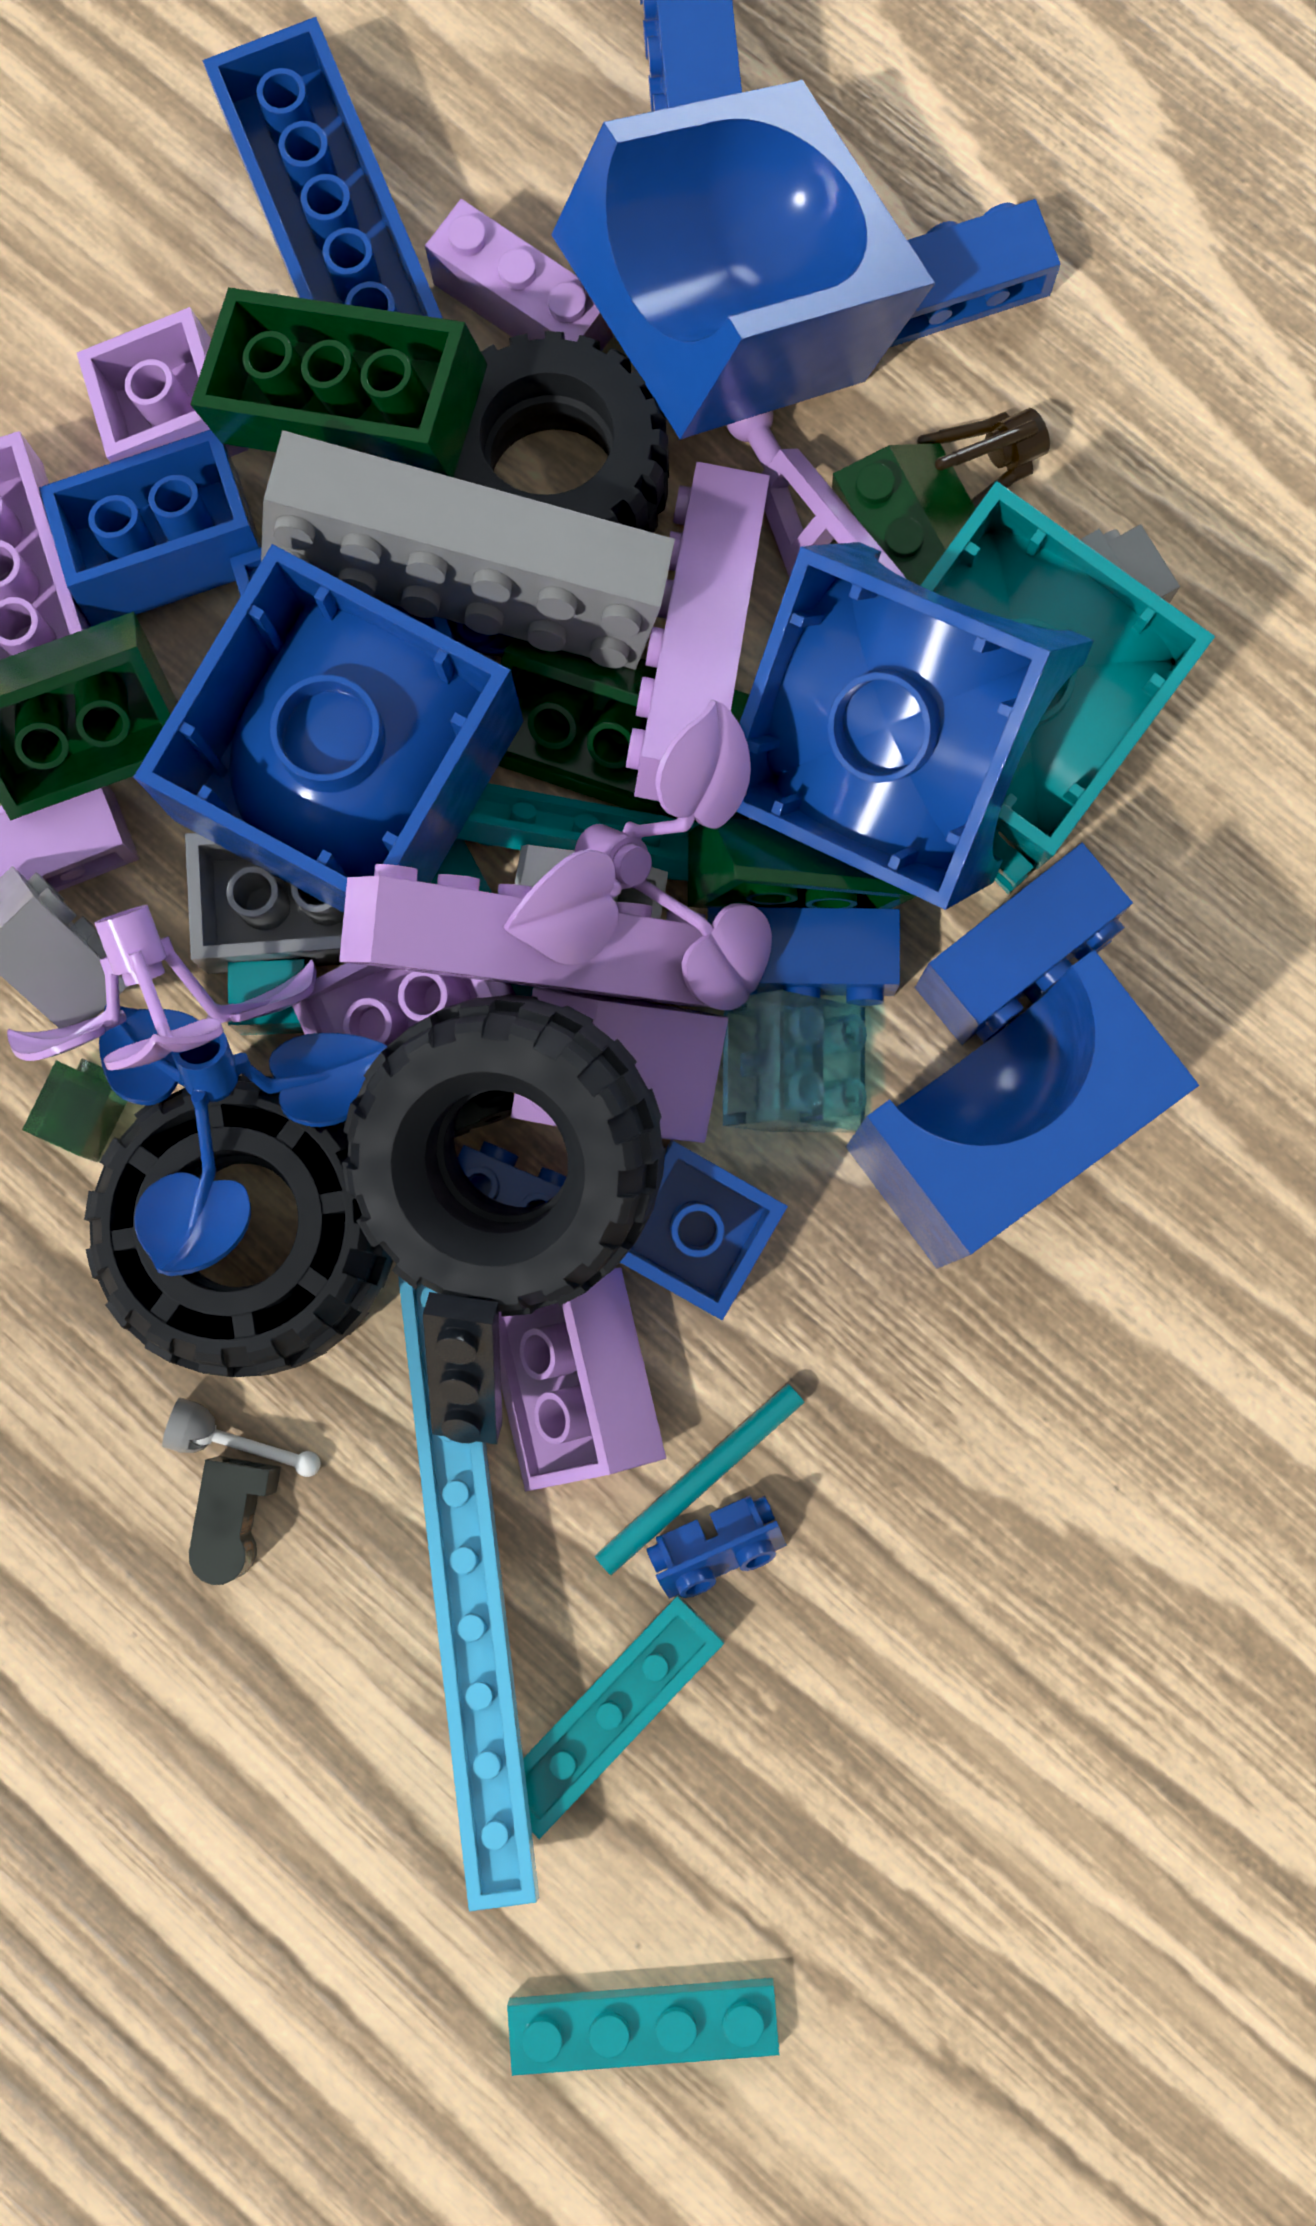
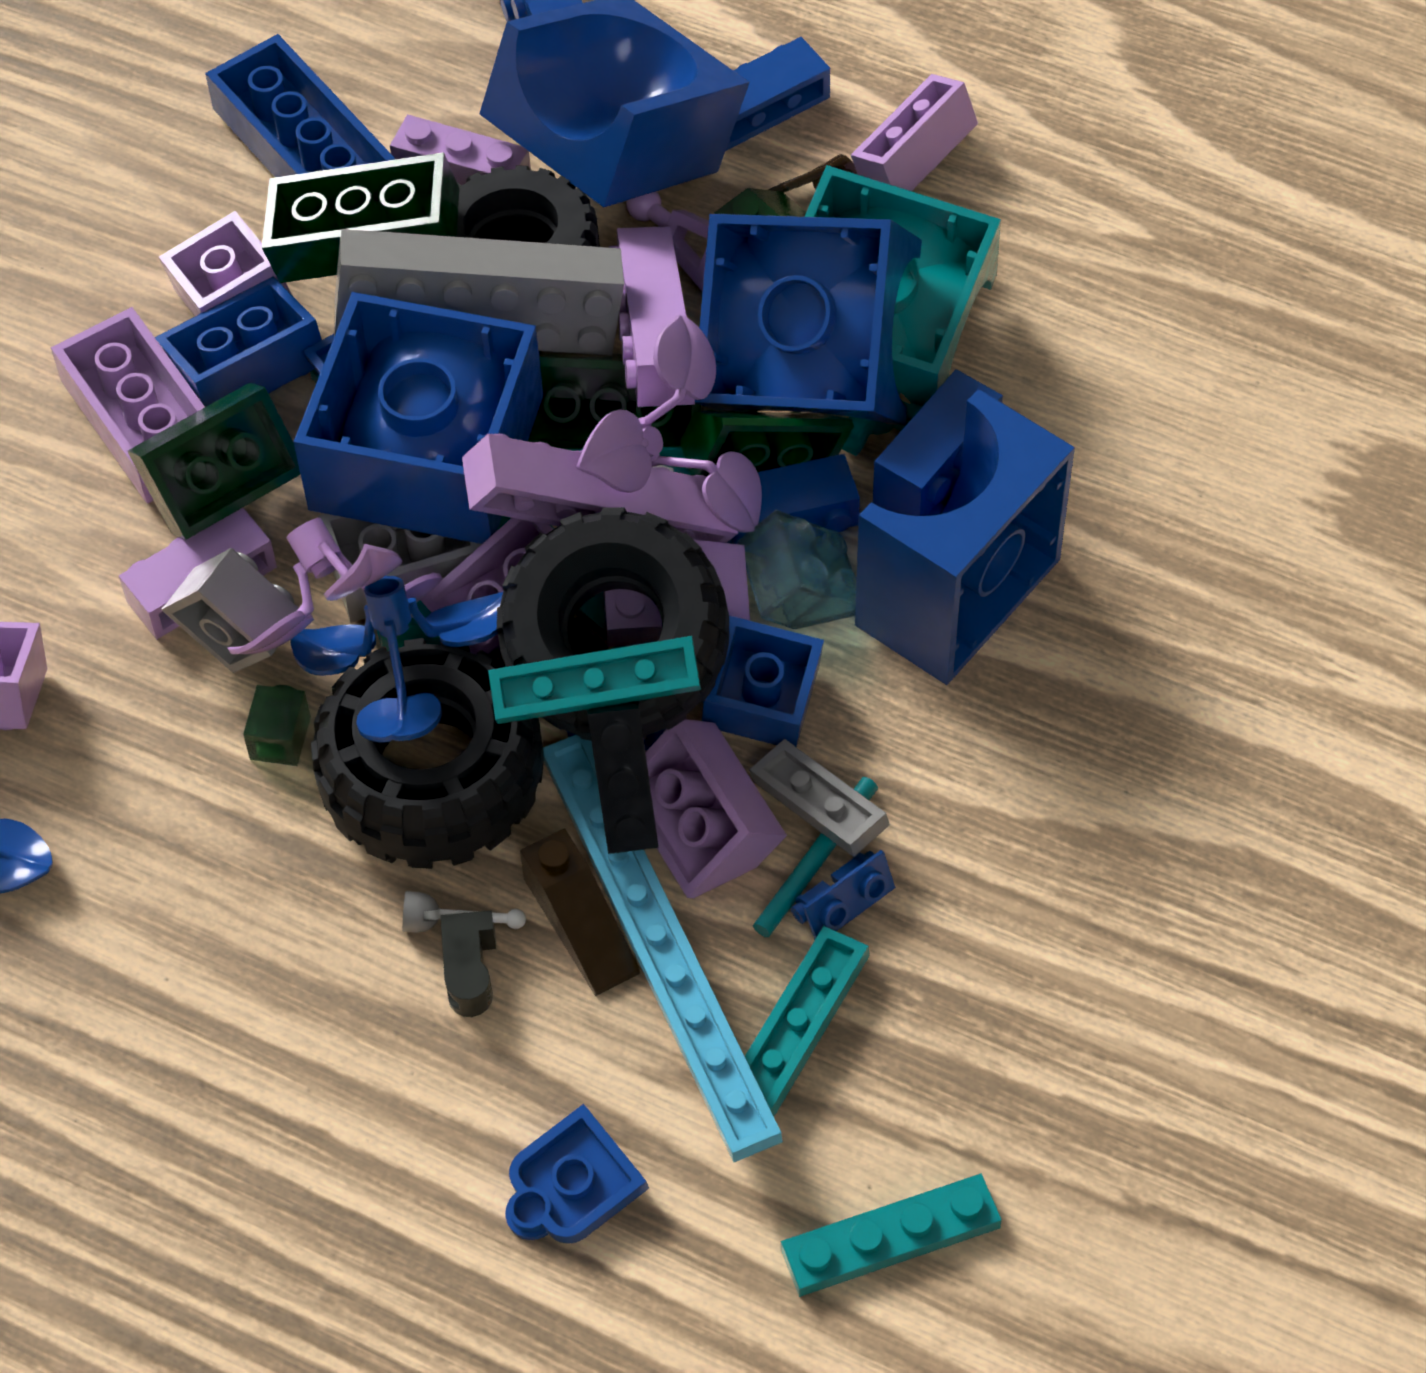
camera: 20 degrees left, 25 degrees down
(281, 1851) = (570, 1181): none -> blue plate
(380, 1486) = (578, 911): none -> dark brown slope
(443, 1270) = (594, 680): none -> teal plate
(722, 1414) = (819, 797): none -> light grey plate
(1143, 411) = (917, 134): none -> lavender brick

